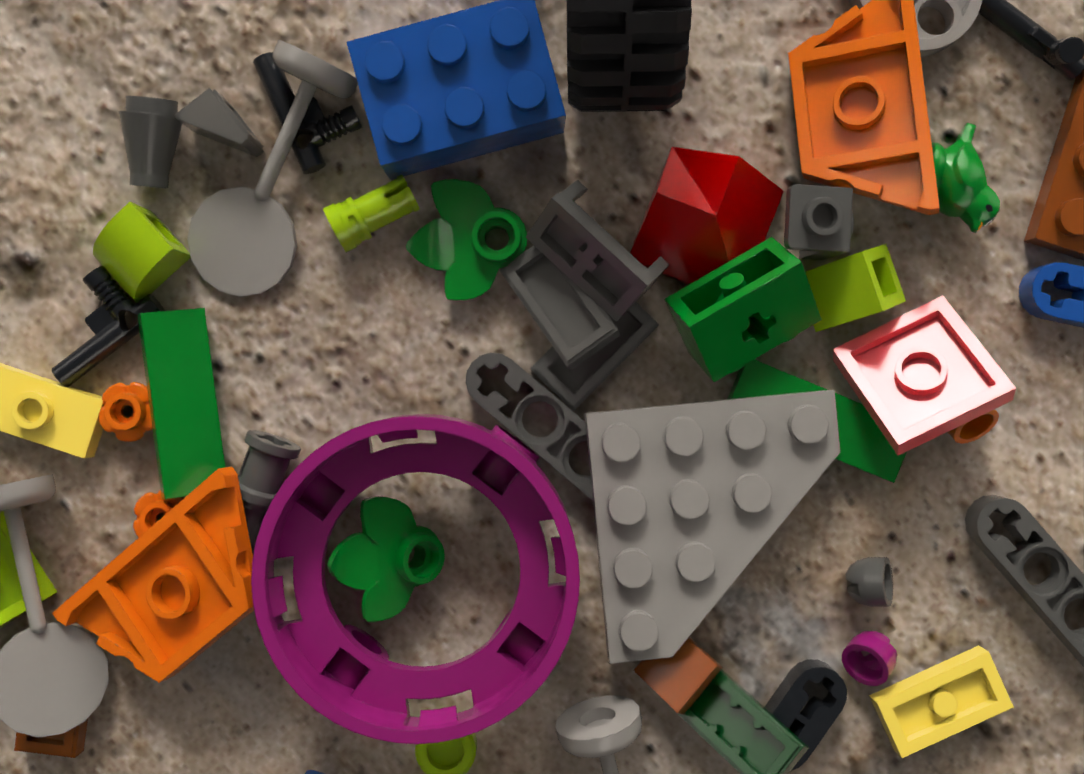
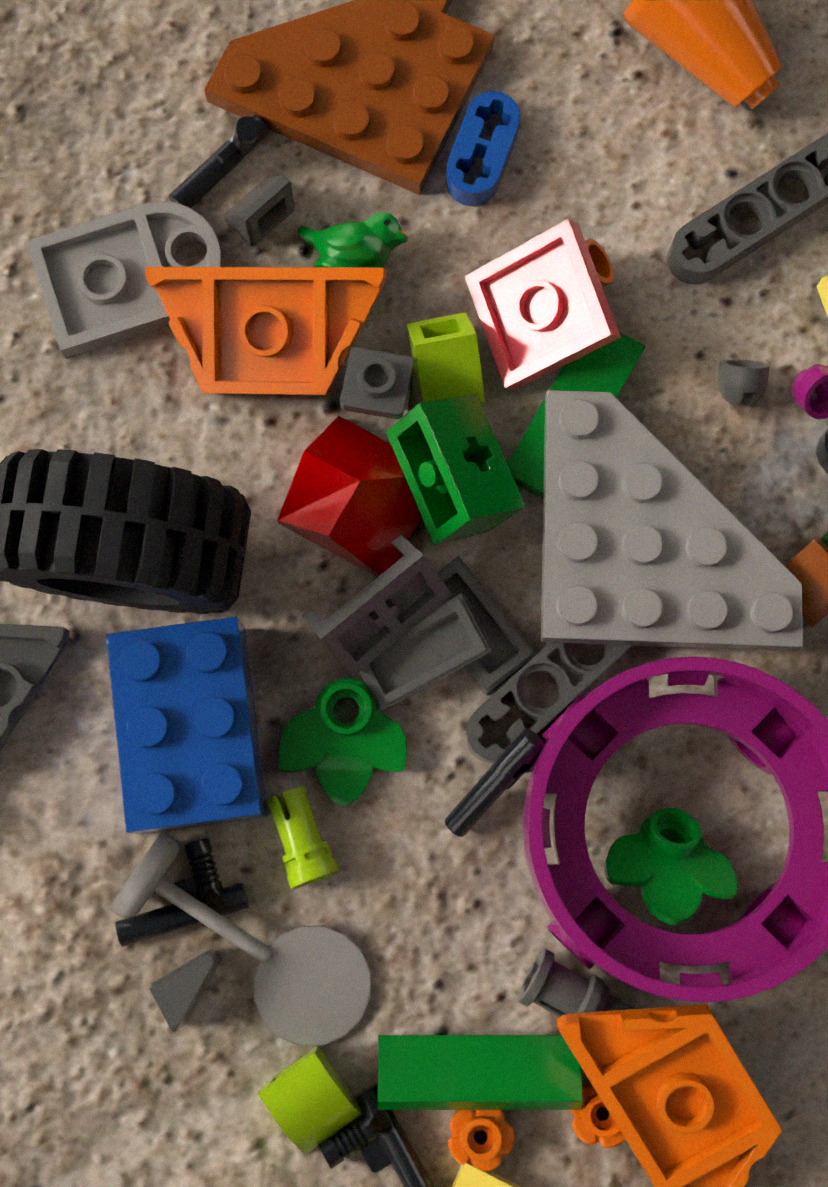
camera: 85 degrees left, 10 degrees down
(150, 139) = (187, 1069): dark grey cone -> none
(465, 401) = (502, 775): none -> black hose
(986, 85) = (262, 209): none -> dark grey slope

